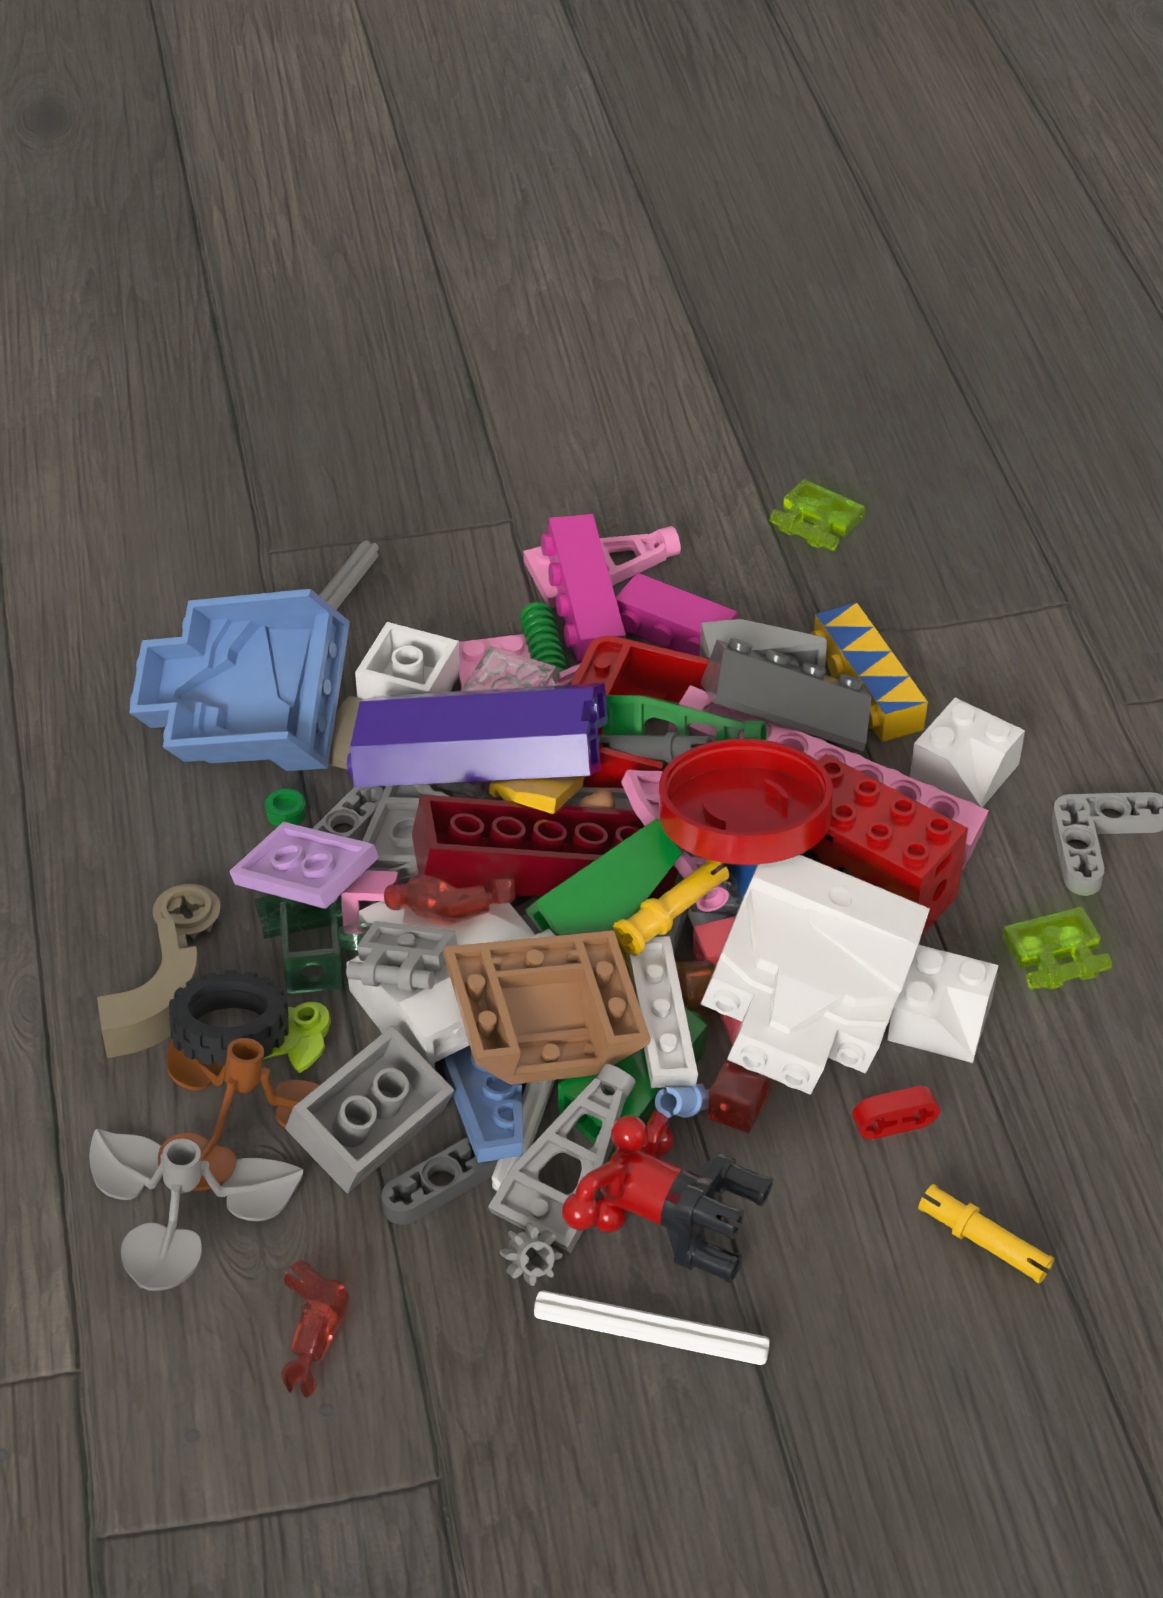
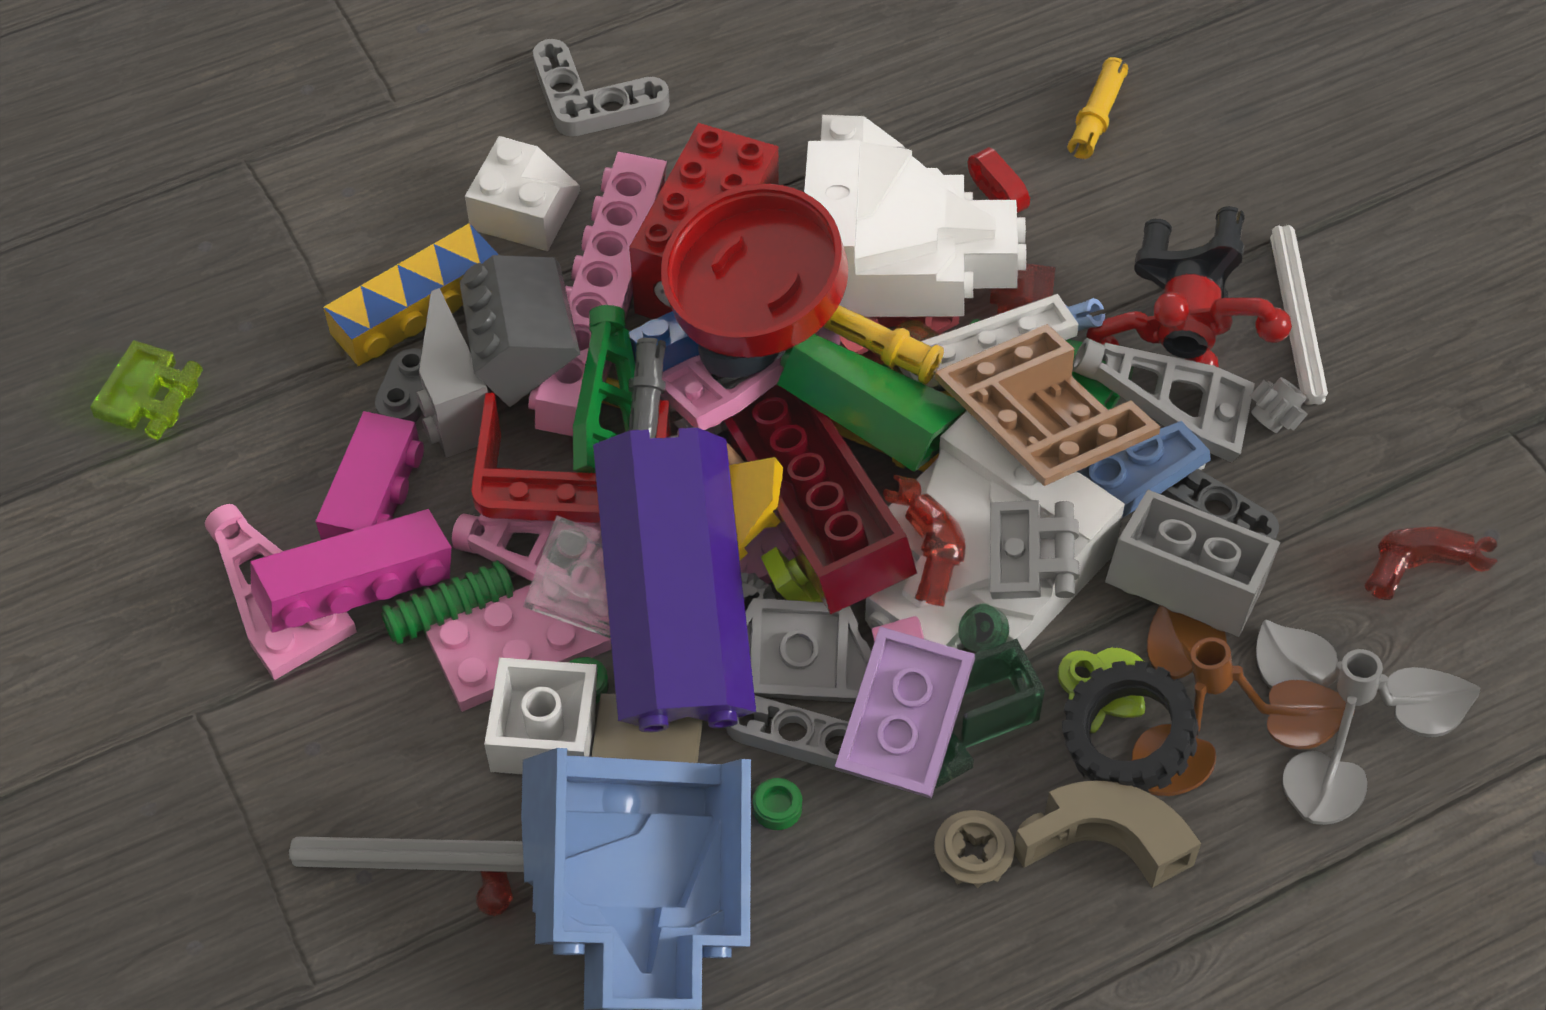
camera: 105 degrees left, 10 degrees up
(1054, 937) = (748, 109): clear neon green plate -> none

